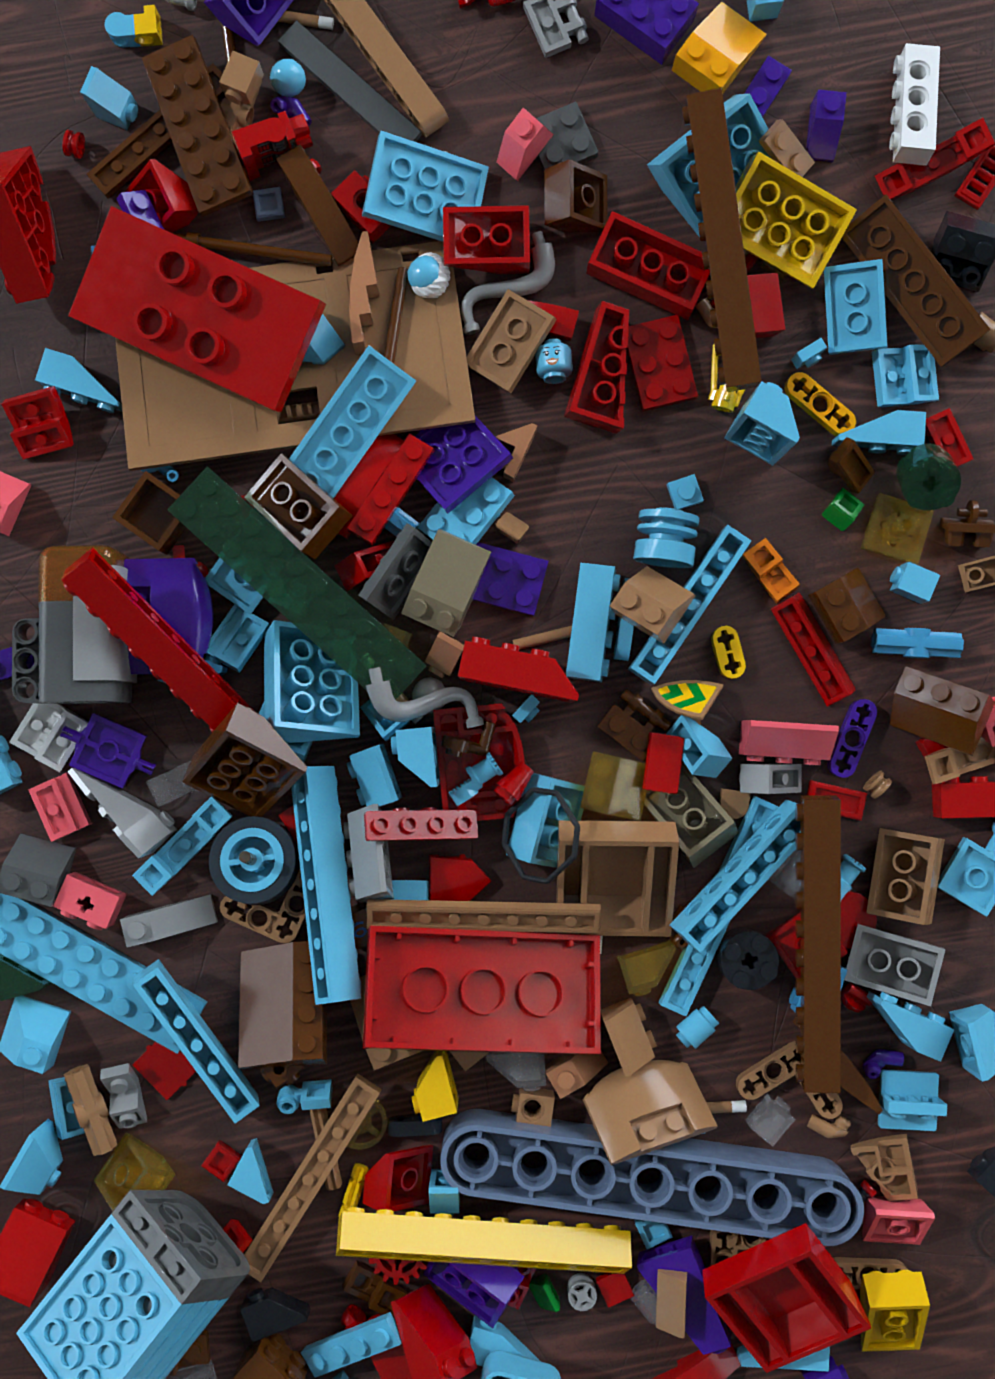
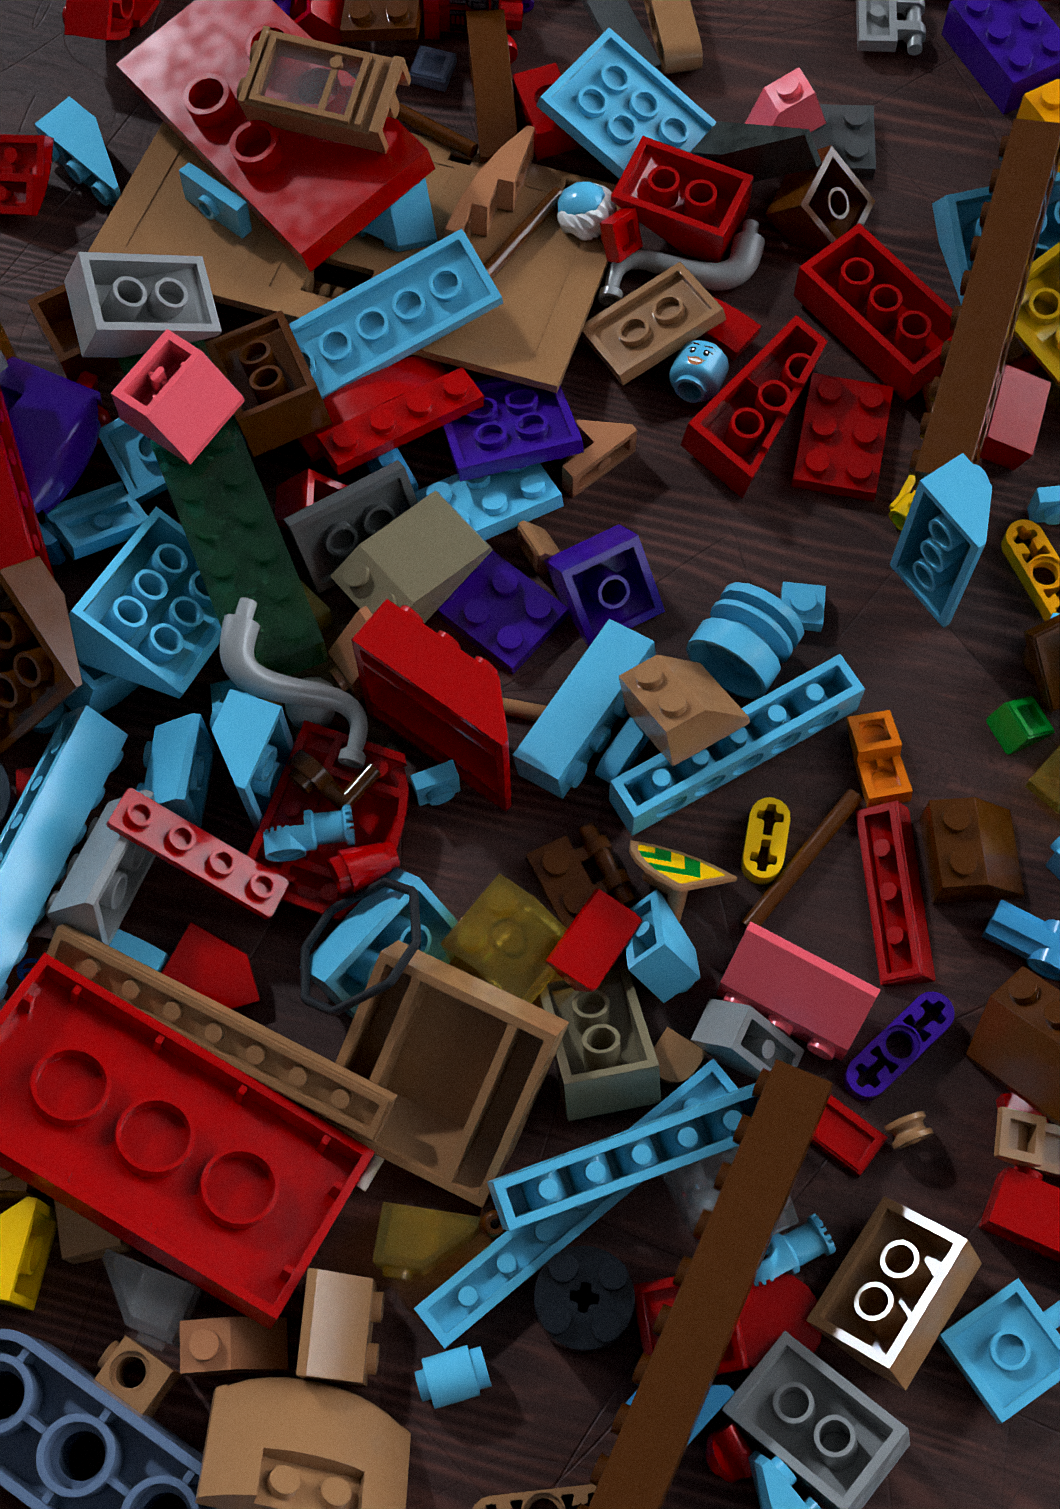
camera: 25 degrees right, 20 degrees down
(189, 387) = (215, 200): none -> medium azure plate
(201, 504) = (131, 299): none -> light grey slope
(230, 290) = (322, 89): none -> medium nougat door
(262, 560) = (176, 397): none -> coral slope
(461, 286) = (621, 234): none -> red plate
(518, 183) = (759, 149): none -> pearl dark grey slope
(563, 535) = (605, 581): none -> dark purple slope
(753, 654) = (802, 859): none -> reddish brown bar

